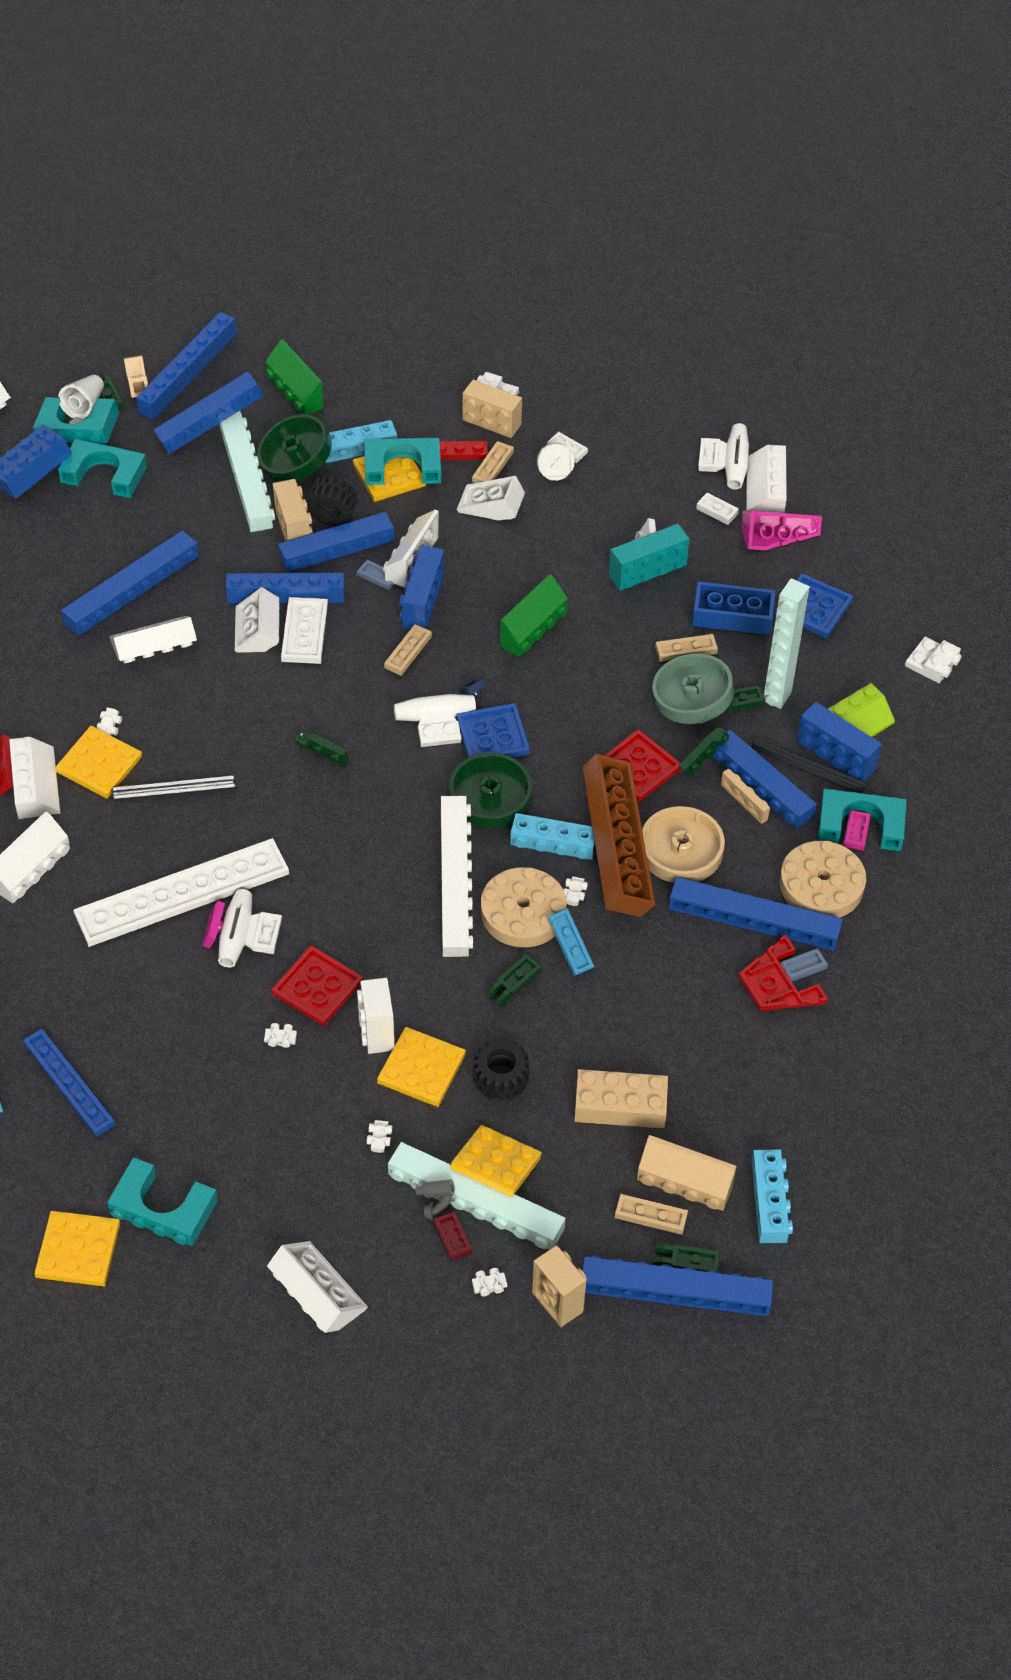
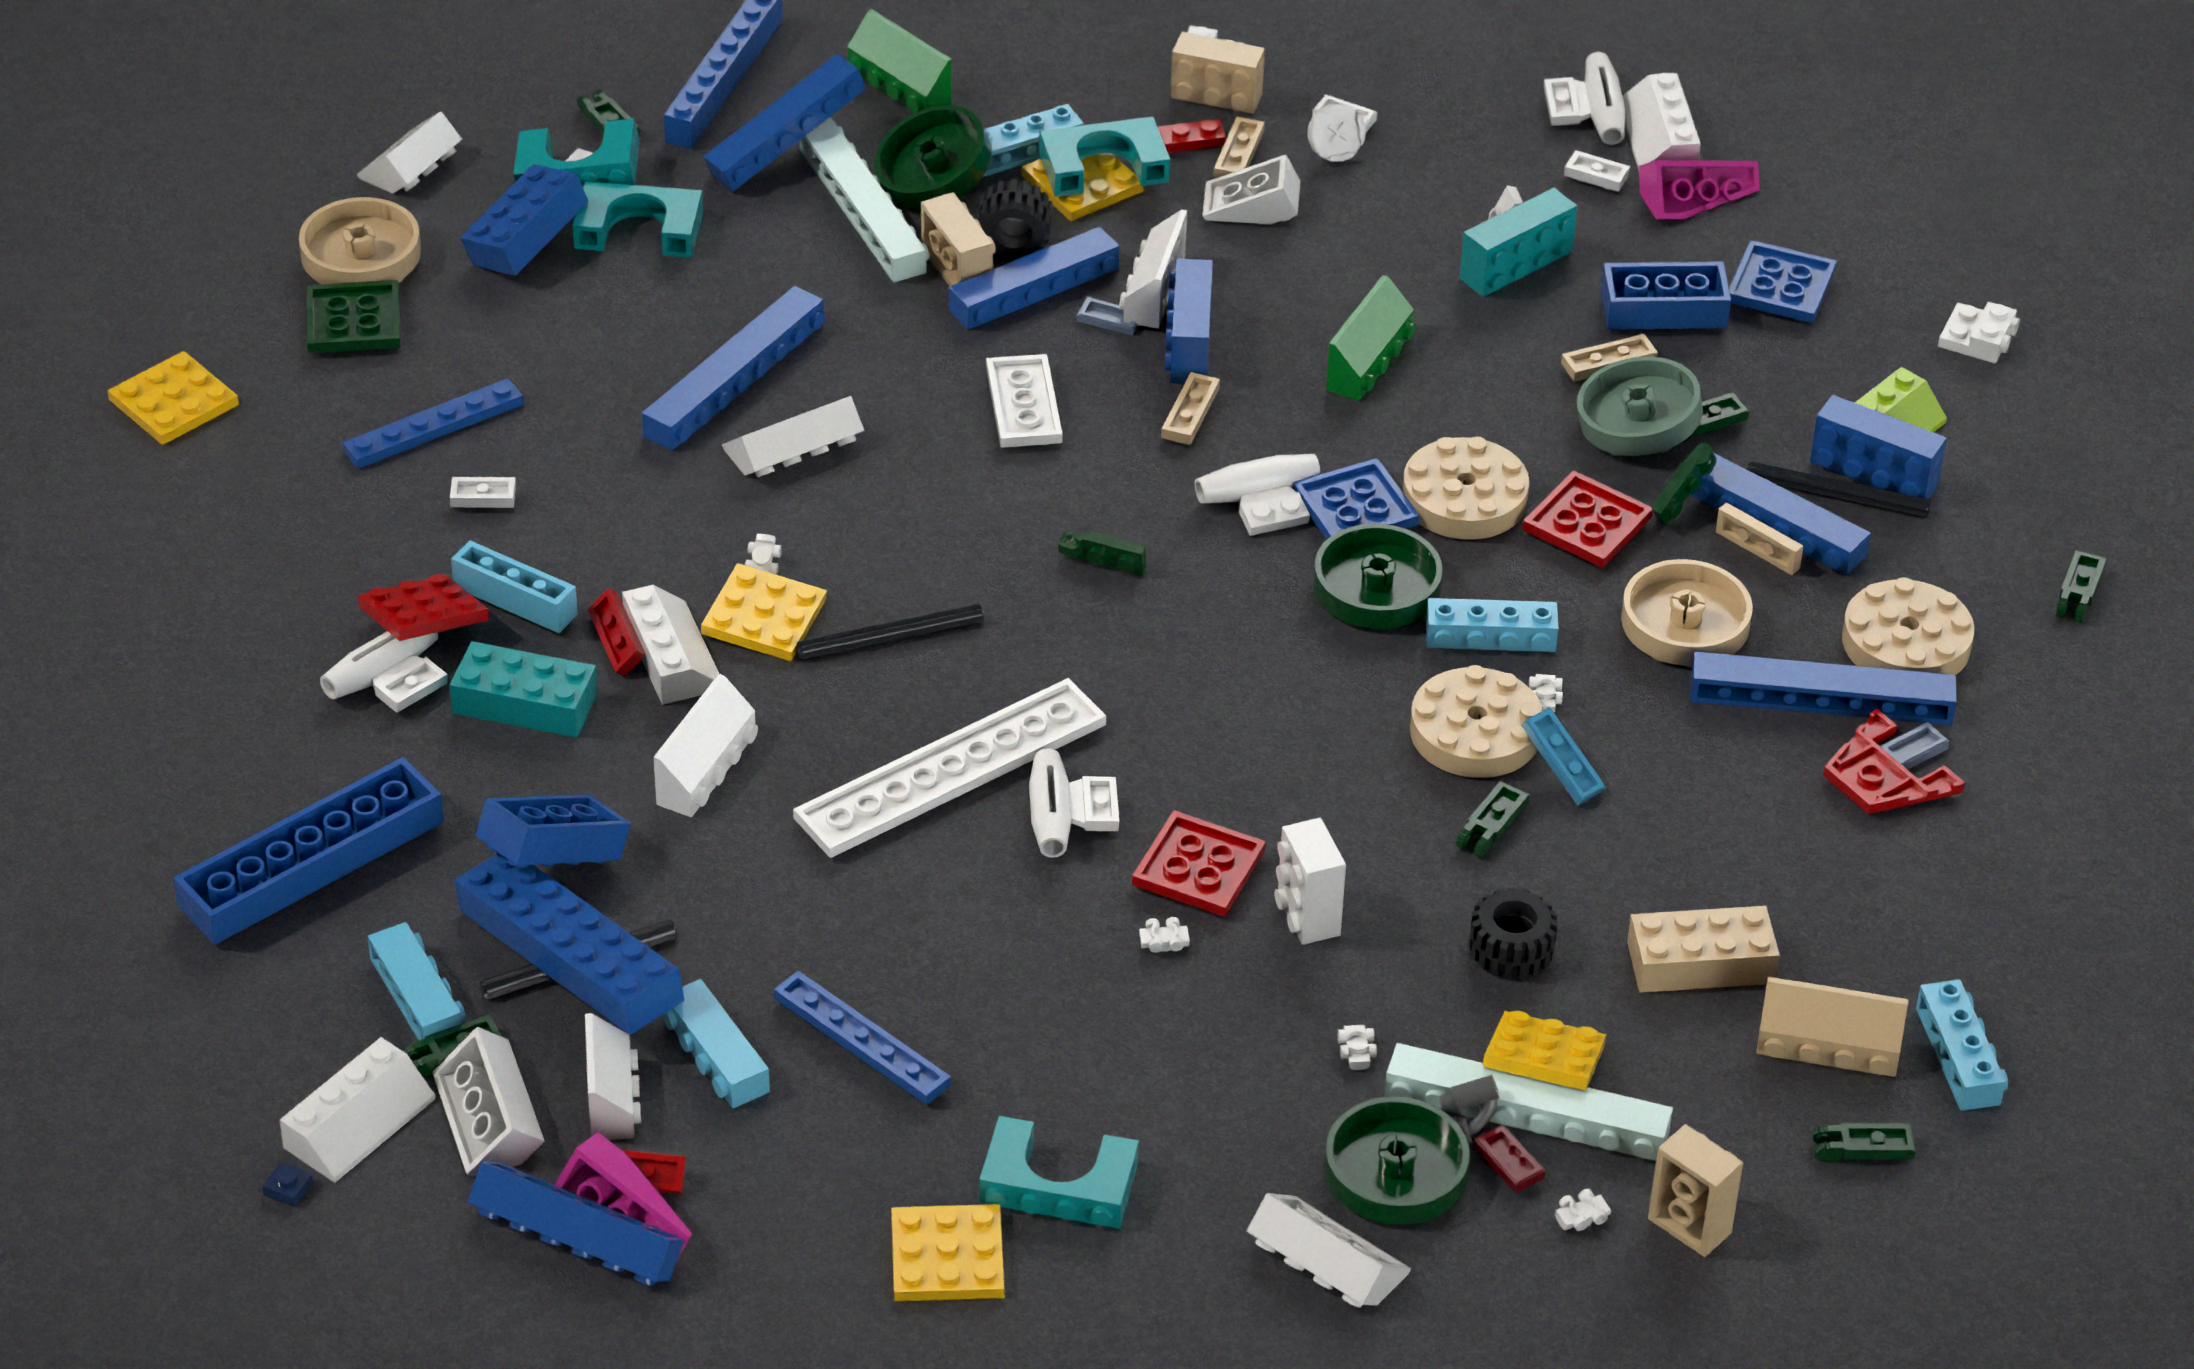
camera: 10 degrees left, 10 degrees down
(80, 396) = (577, 123): white cone -> none
(135, 375) = (649, 91): tan brick -> none
(214, 924) = (1015, 802): dark pink plate -> none
(257, 622) = (947, 398): white slope -> none
(286, 585) = (968, 345): blue brick -> none
(376, 1205) = (1367, 1152): none -> dark green piece
(421, 1066) = (1389, 949): yellow plate -> none
(455, 876) = (1364, 691): white brick -> none
(472, 687) = (1307, 444): dark blue plate -> none
(563, 749) = (1483, 506): none -> tan piece
(618, 836) = (1593, 606): dark orange brick -> none
(651, 1214) = (1793, 1091): tan plate -> none
(678, 1286) = (1872, 1176): blue brick -> none
(786, 643) = (1776, 311): light aqua brick -> none
(856, 830) = (1937, 562): dark pink plate -> none
(888, 812) = (1974, 533): teal arch -> none
(947, 858) = (2080, 583): none -> hinge

